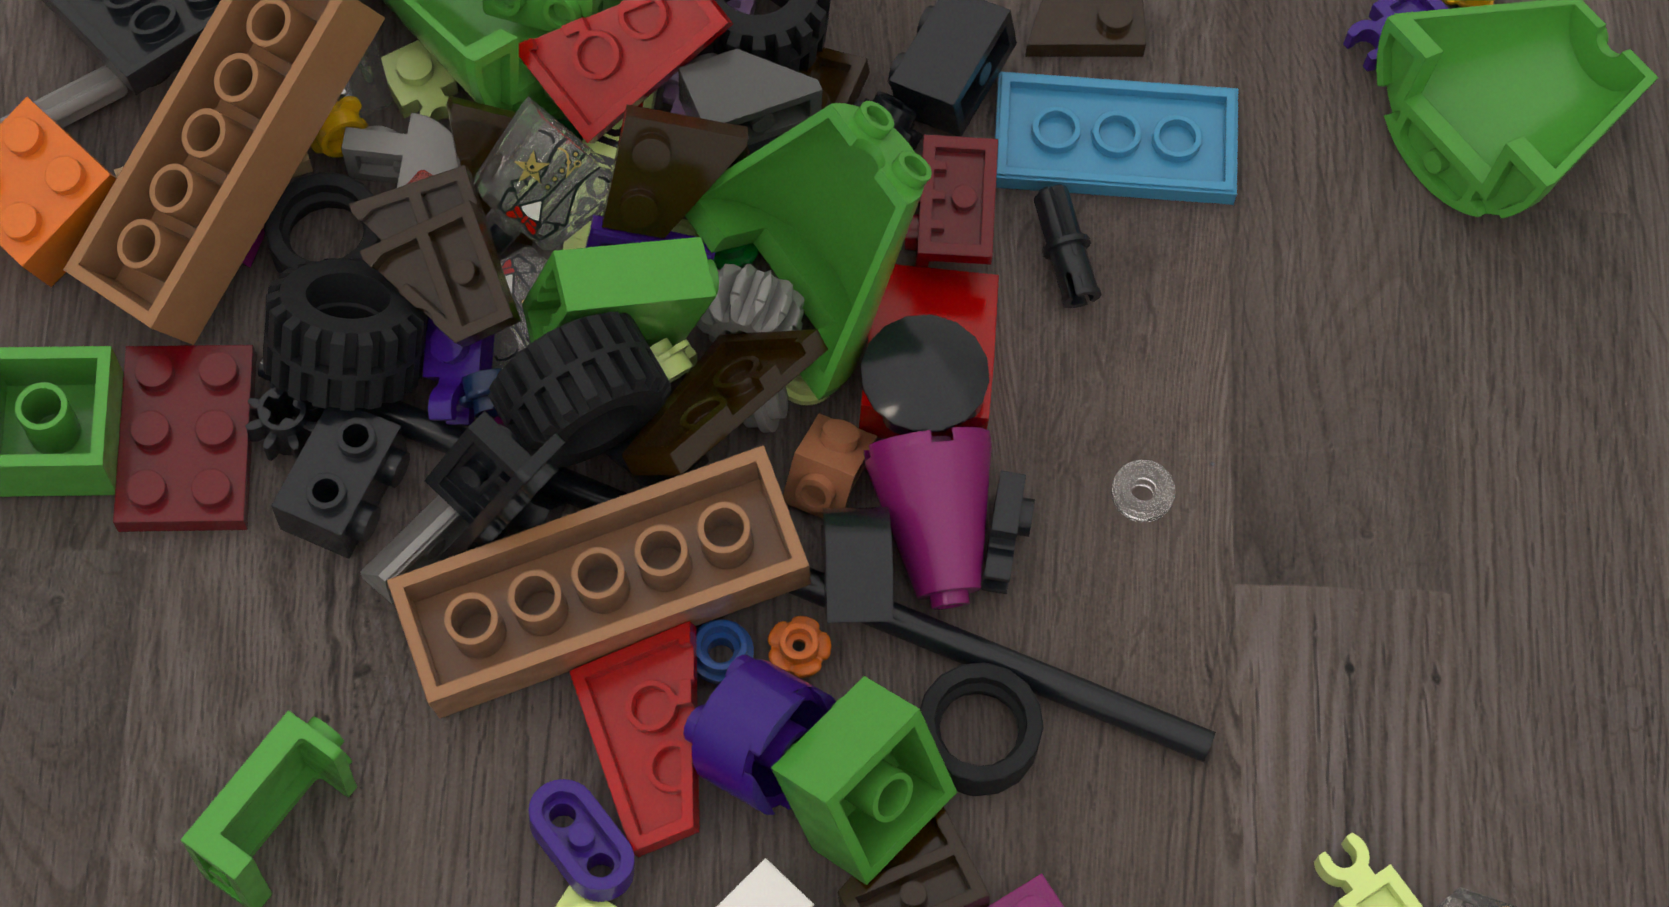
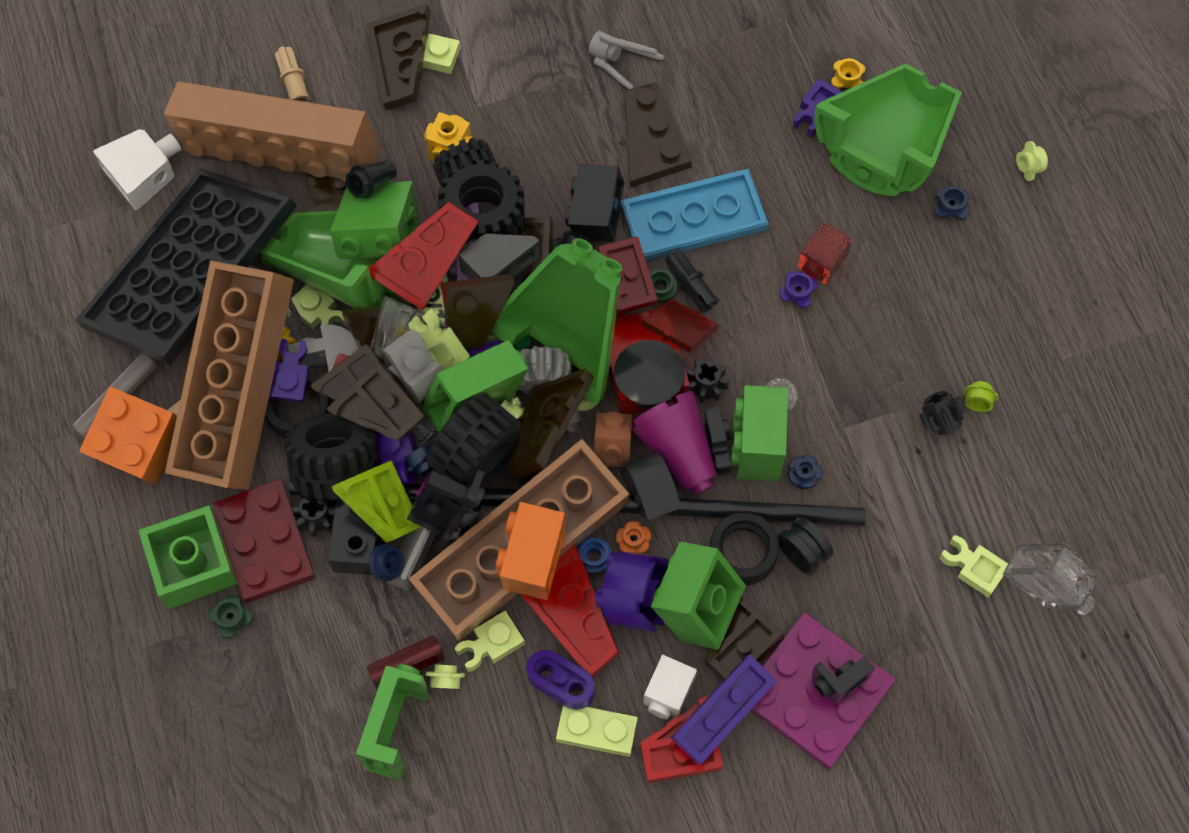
camera: 15 degrees left, 0 degrees up
(77, 525) = (230, 605): none -> dark green plate
(326, 180) = (289, 377): none -> dark purple plate
(353, 717) = (418, 655): none -> dark red slope
(377, 541) = (386, 562): none -> dark blue plate
(389, 433) = (379, 500): none -> lime wing
(391, 767) = (445, 677): none -> yellowish green plate
(504, 735) = (495, 638): none -> yellowish green plate
(524, 223) = (412, 365): none -> light grey brick
(585, 210) = (442, 345): none -> yellowish green plate
(600, 602) = (532, 550): none -> orange brick
(1016, 314) = (680, 325): none -> clear red piece
(1021, 225) = (664, 278): none -> dark green plate
(1041, 416) = (709, 371): none -> black gear
(1078, 541) = (760, 433): none -> bright green brick
(1084, 760) = (805, 545): none -> black wheel
(1133, 650) = (803, 480): none -> dark blue plate
(1249, 305) = (802, 281): none -> dark purple plate
(1313, 275) = (824, 253): none -> clear red brick
(1413, 616) = (942, 413): none -> black gear
(1492, 611) = (980, 396): none -> lime plate
(1579, 249) = (955, 195): none -> dark blue plate

